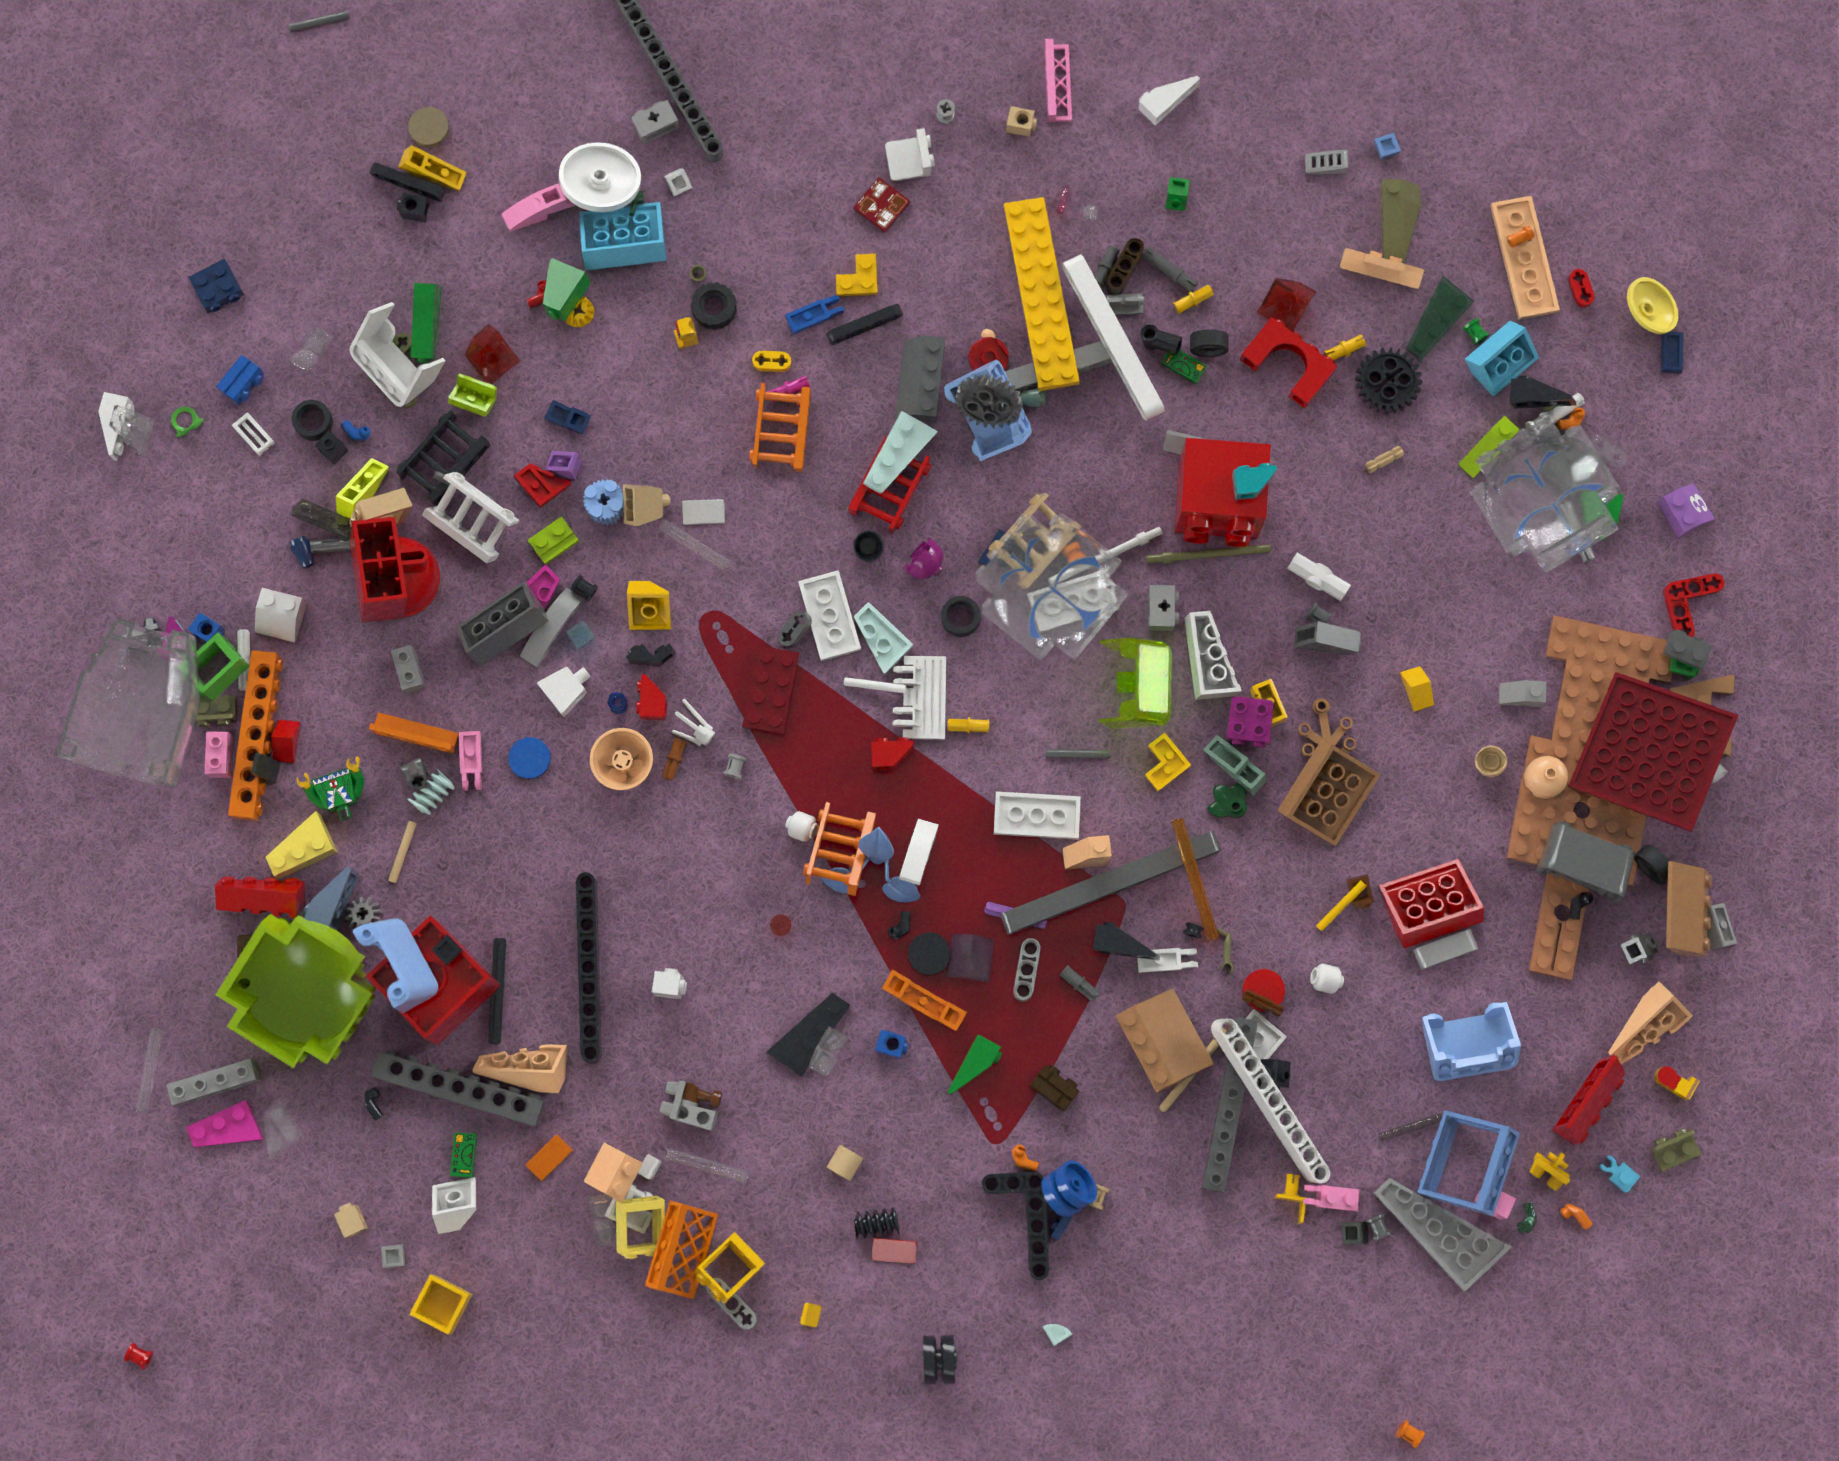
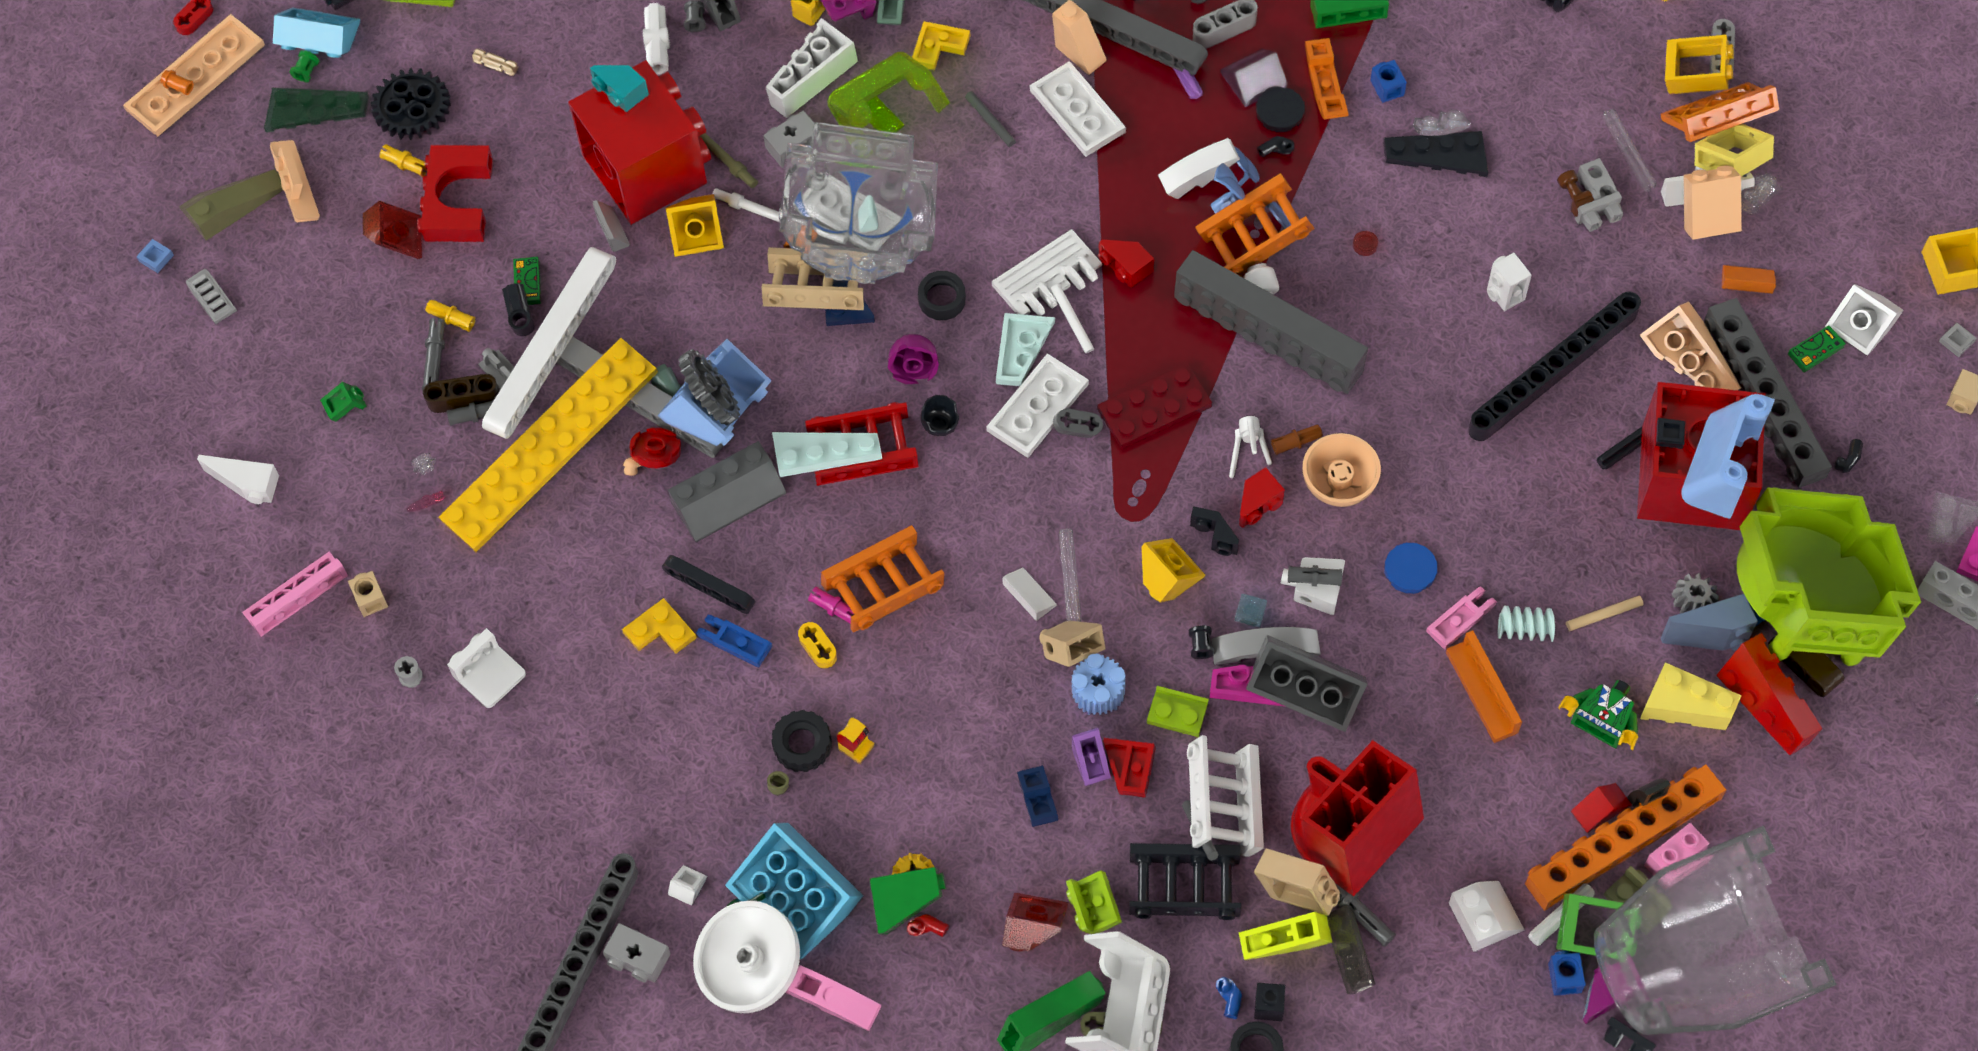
camera: 125 degrees left, 15 degrees down
(301, 549) = (1401, 945): dark blue cone -> none
(408, 669) = (1428, 740): light grey brick -> none
(415, 773) = (1521, 654): dark grey piece -> none
(562, 681) = (1314, 575): none -> dark grey pin
(624, 704) = (1282, 521): clear blue bush -> none
(734, 766) = (1256, 381): light grey bush -> none
(764, 802) = (1270, 322): none -> dark grey brick
(844, 1162) = (1523, 44): tan piece -> none
(881, 205) = (561, 664): dark red tile -> none
(968, 725) = (1041, 219): yellow axle -> none
(1048, 602) = (868, 215): none -> light aqua slope
(1141, 497) = (694, 225): none -> yellow slope
(1209, 343) = (489, 263): black tyre -> none

